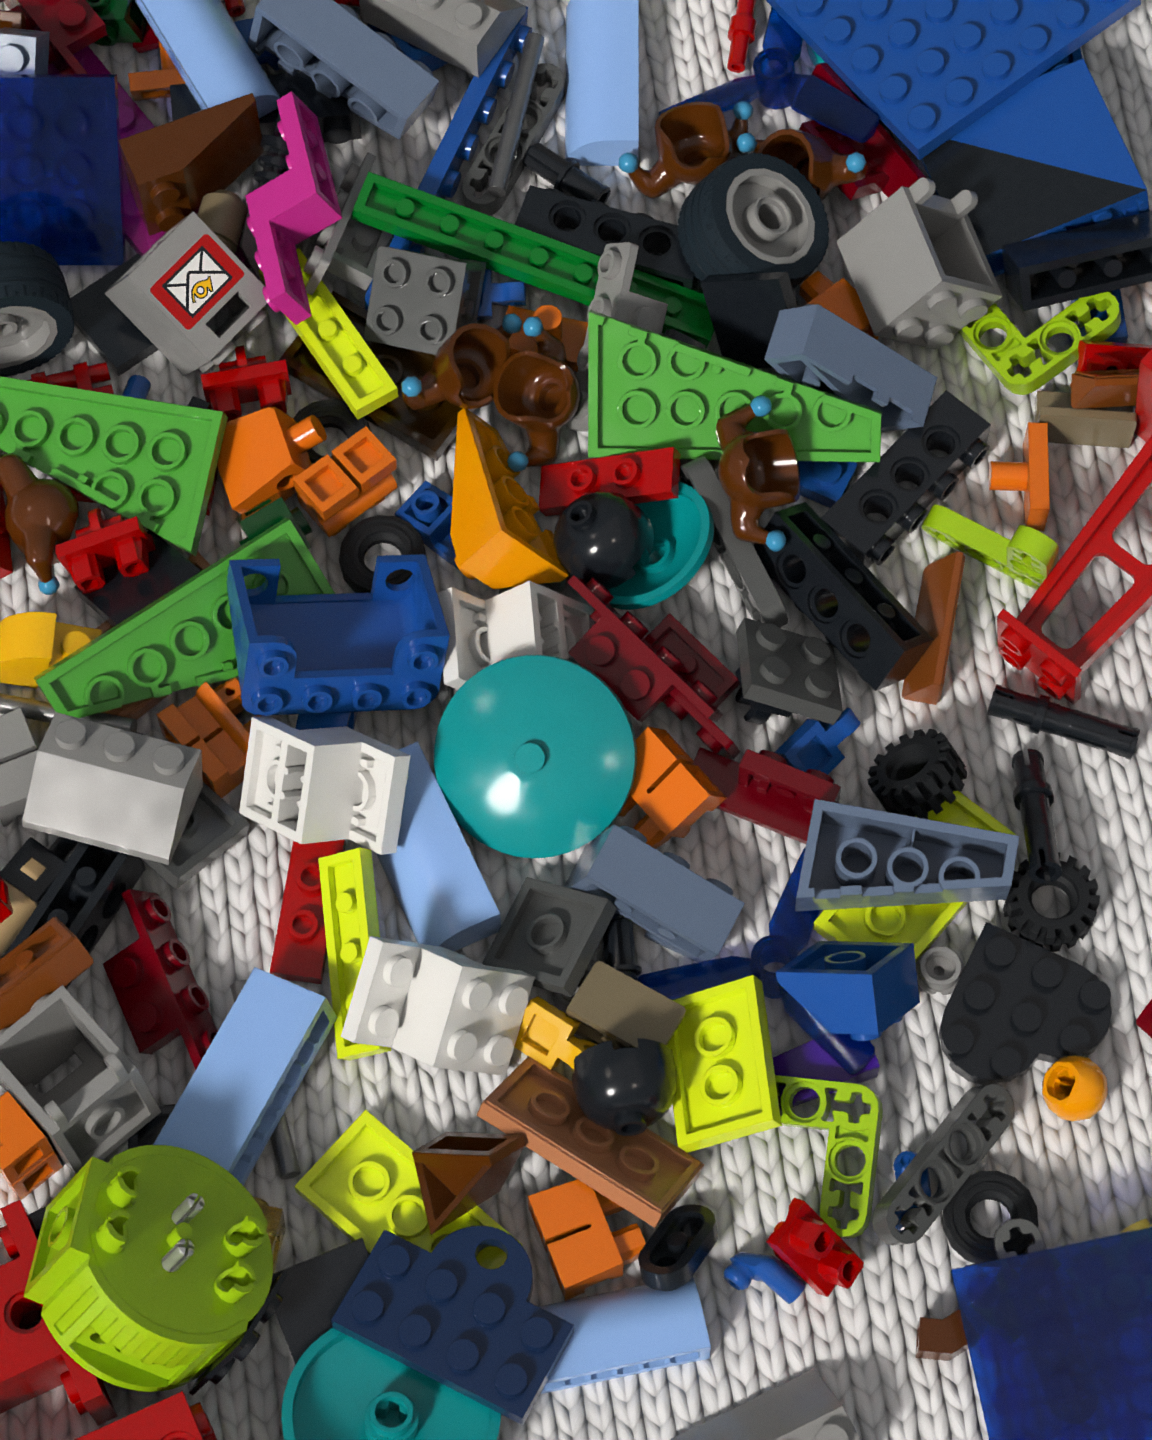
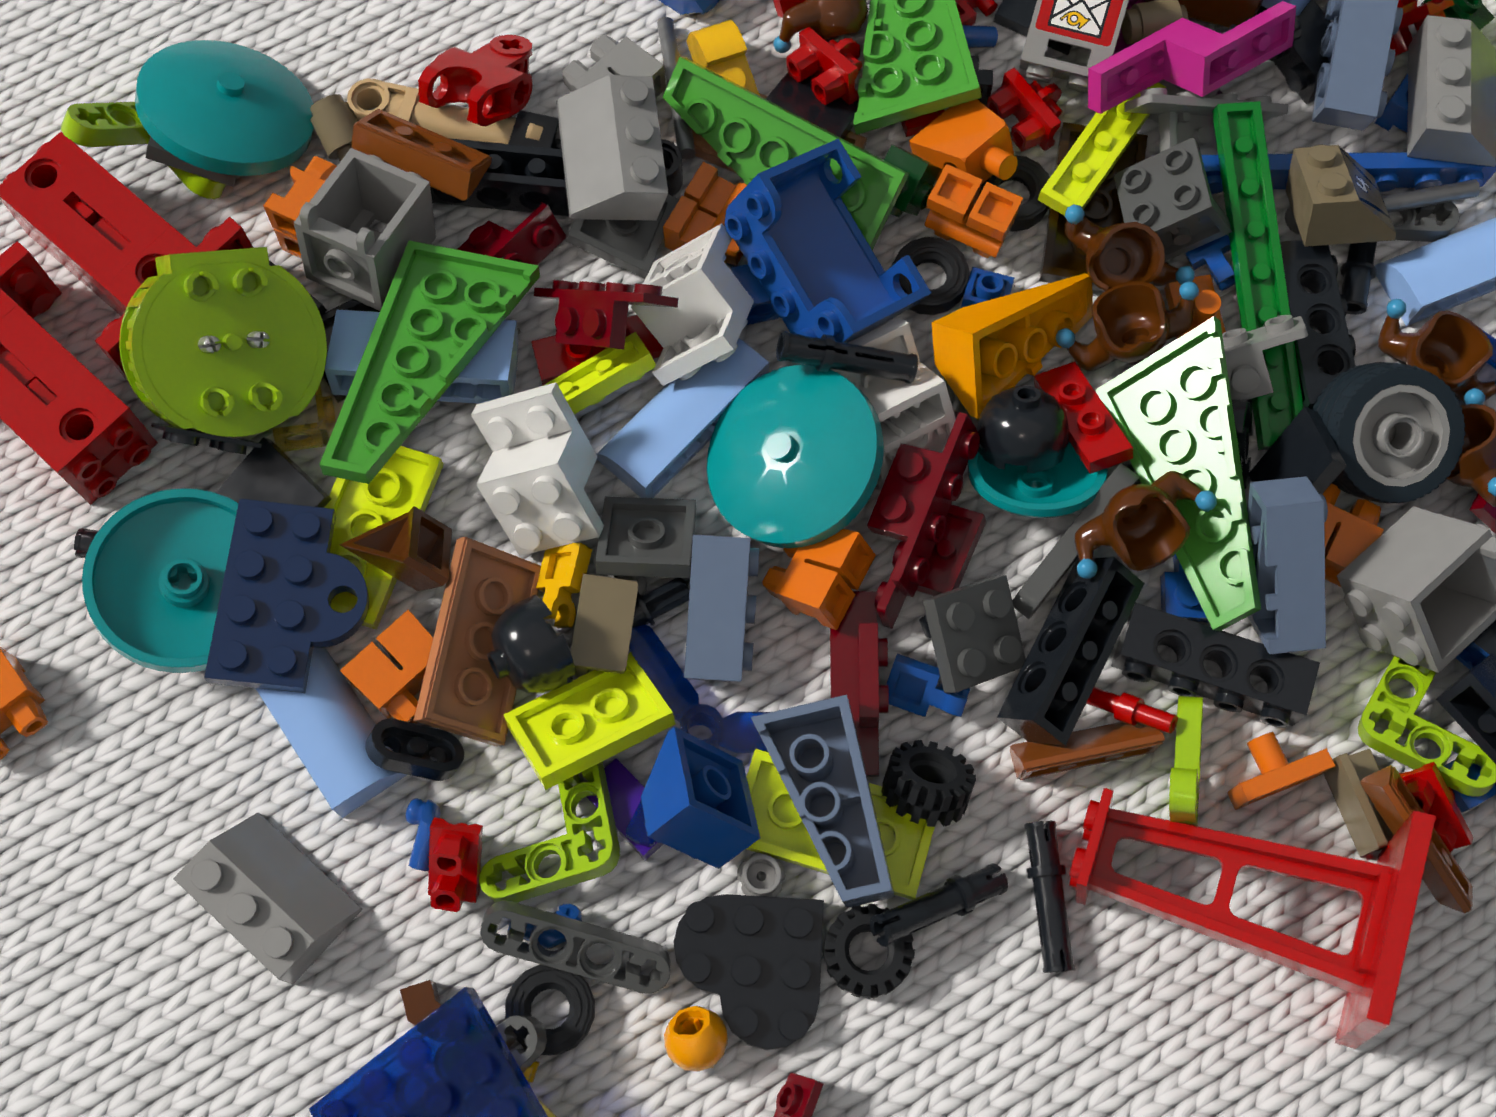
camera: 65 degrees right, 5 degrees up
(236, 1052) = (426, 334): none -> bright green wing
(297, 878) = (598, 312): none -> dark red bracket
(457, 669) = (830, 354): none -> black pin
(498, 159) = (1335, 198): none -> dark tan slope
(917, 571) = (1132, 710): none -> red bar

